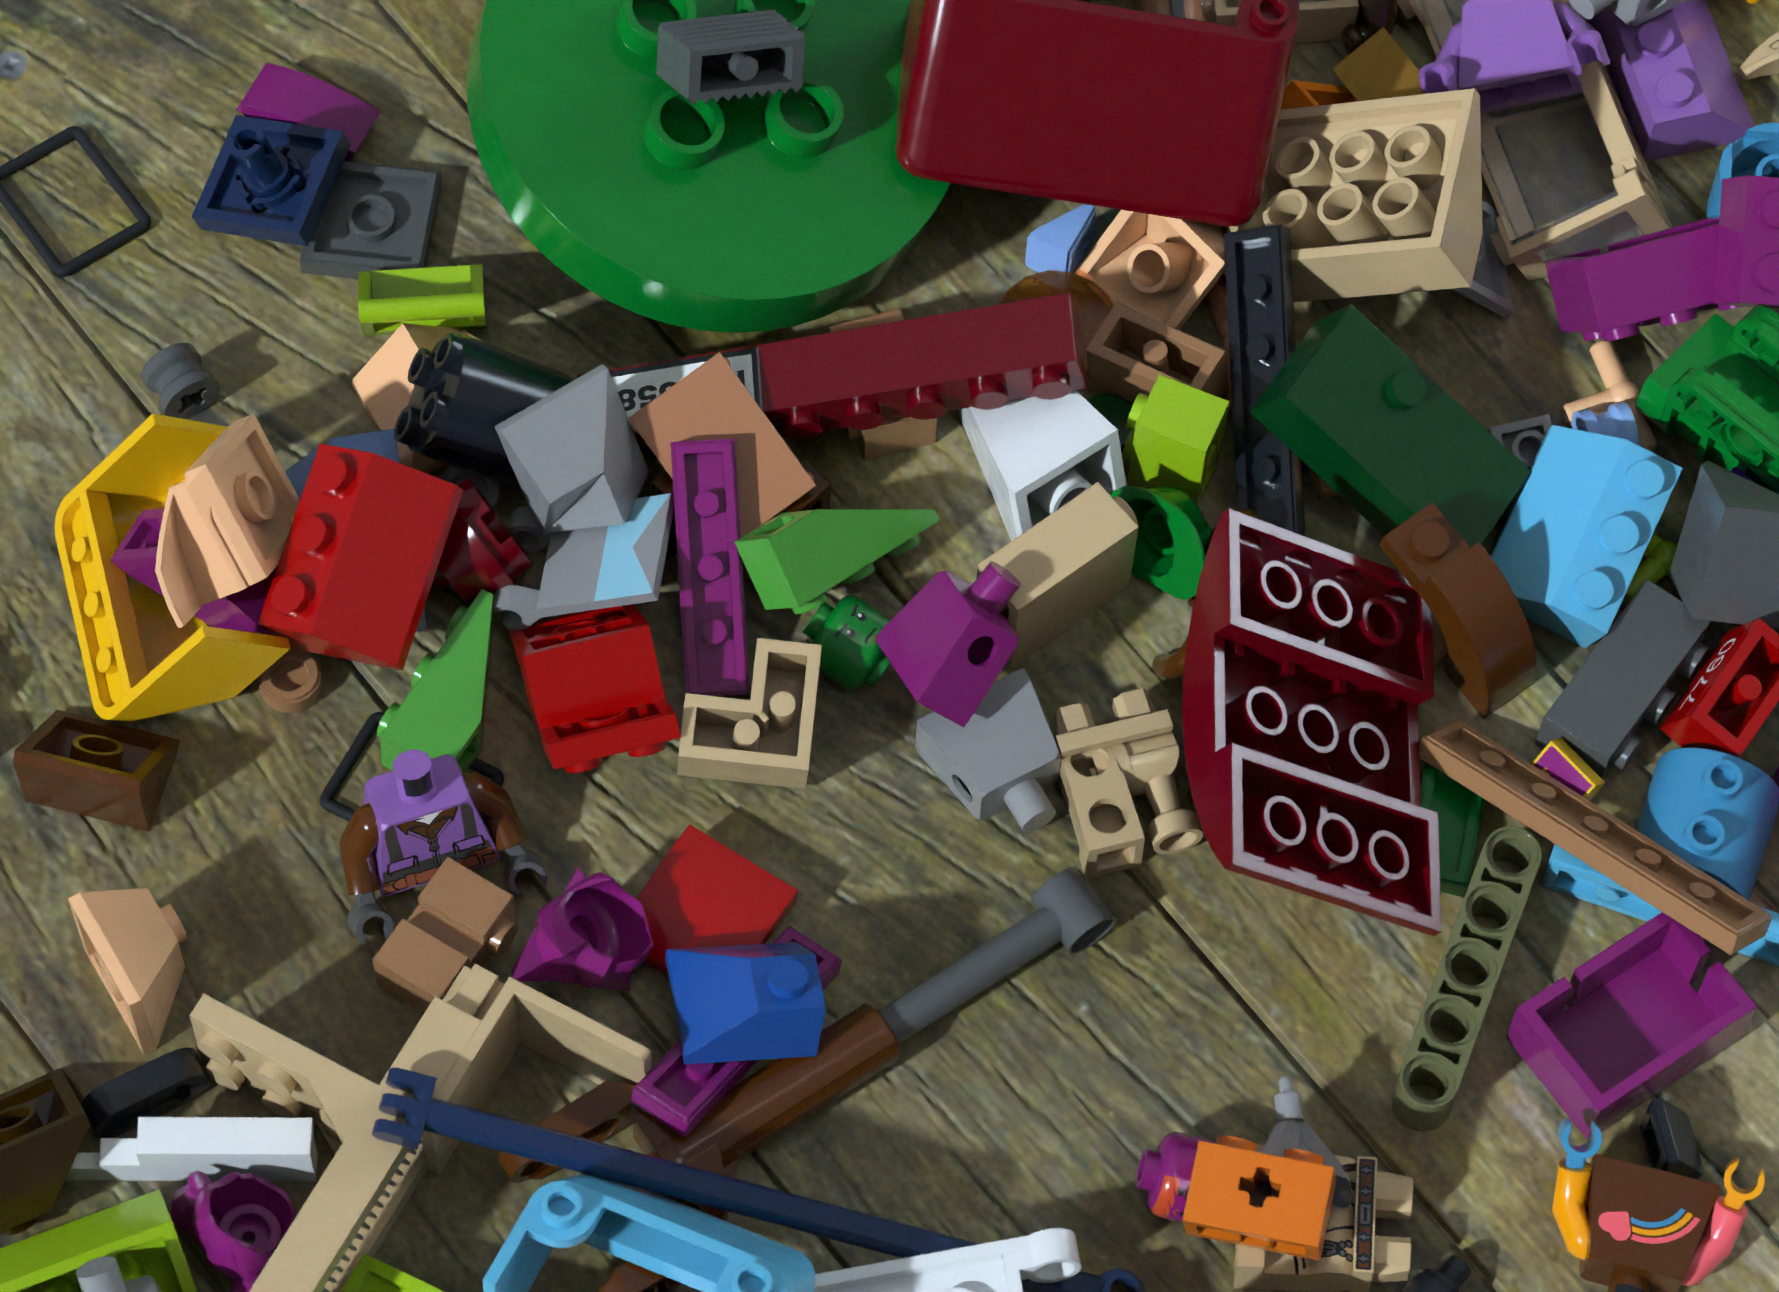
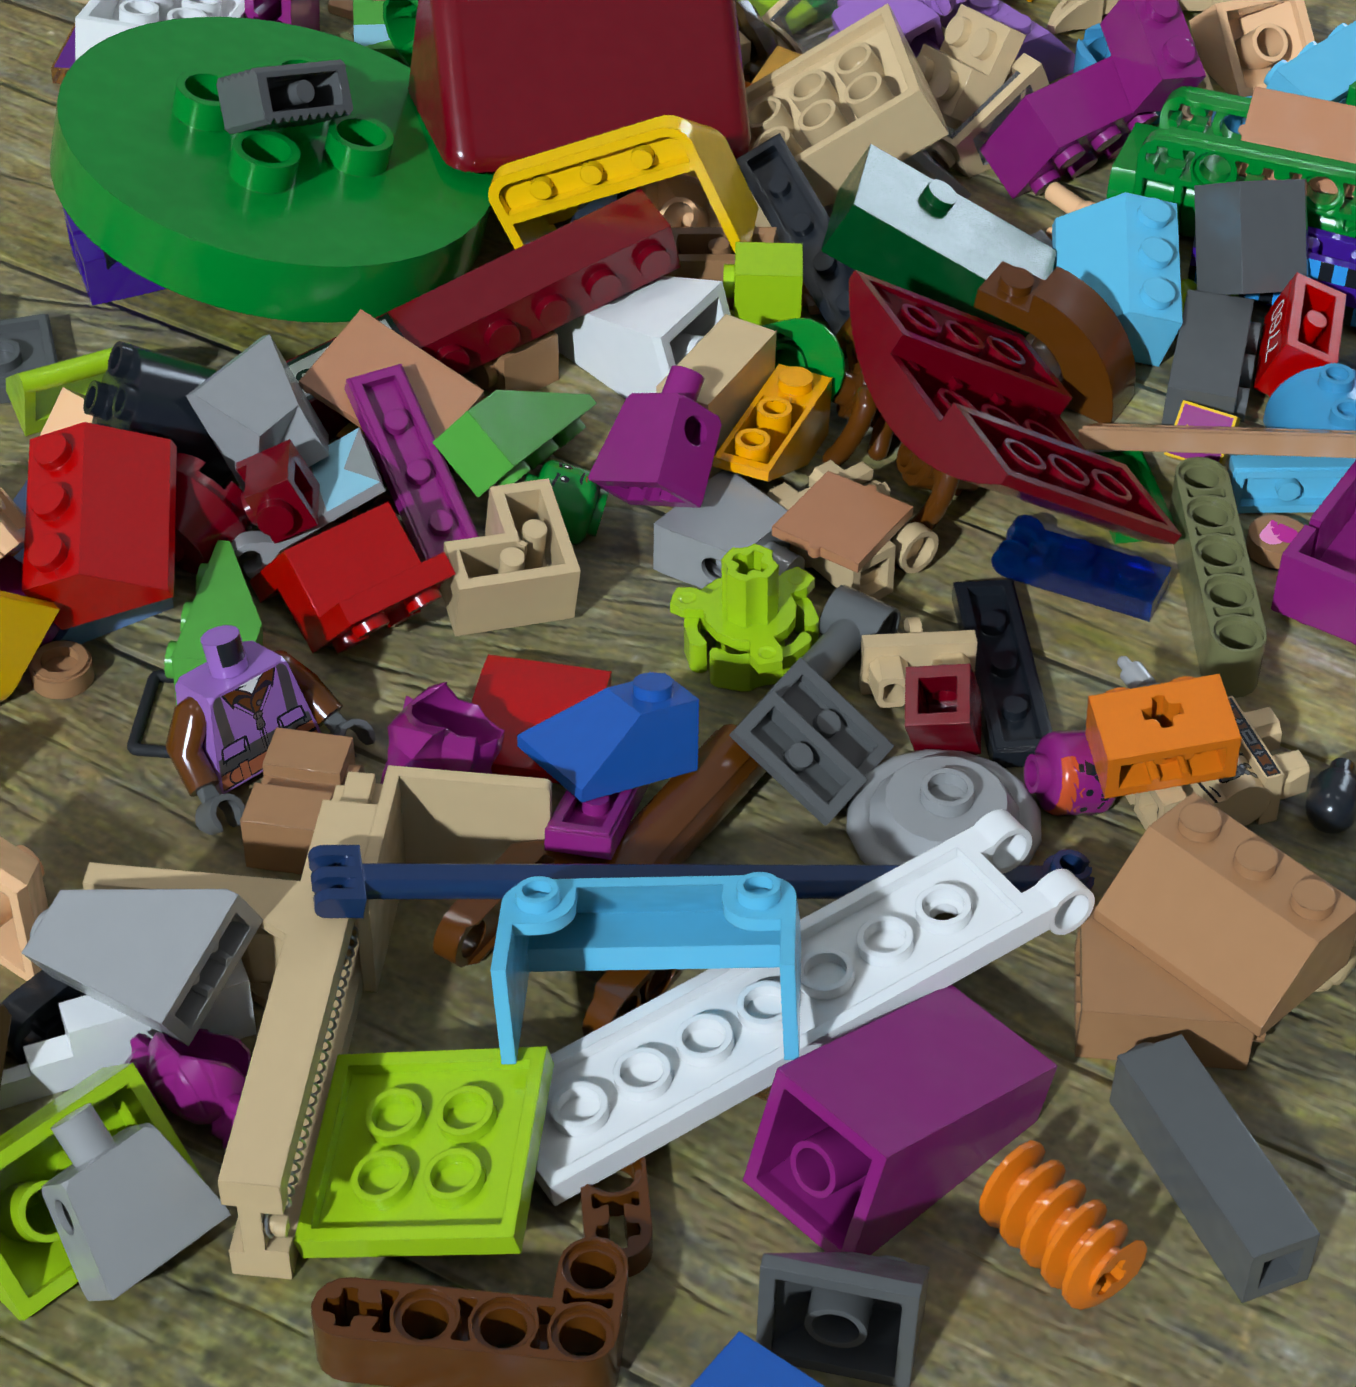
camera: 20 degrees left, 20 degrees down
(213, 1116) = (146, 950): none -> light grey slope
(555, 564) = (271, 495): none -> dark red brick
(945, 1053) = (812, 741): none -> dark grey slope
(964, 870) = (749, 618): none -> lime piece
(1000, 237) = (551, 185): none -> yellow windscreen
(1041, 1165) = (929, 798): none -> light grey piece
(1090, 1062) = (943, 708): none -> dark red brick
(1104, 629) = (779, 426): none -> light orange slope
(1104, 789) = (842, 521): none -> nougat piece
(1107, 979) = (888, 655): none -> tan hips
(1193, 1015) = (1005, 670): none -> black tile
(1369, 947) = (1080, 569): none -> clear blue plate
(1562, 946) = (1269, 538): none -> medium nougat tile
(1570, 147) = (969, 63): none -> tan plate

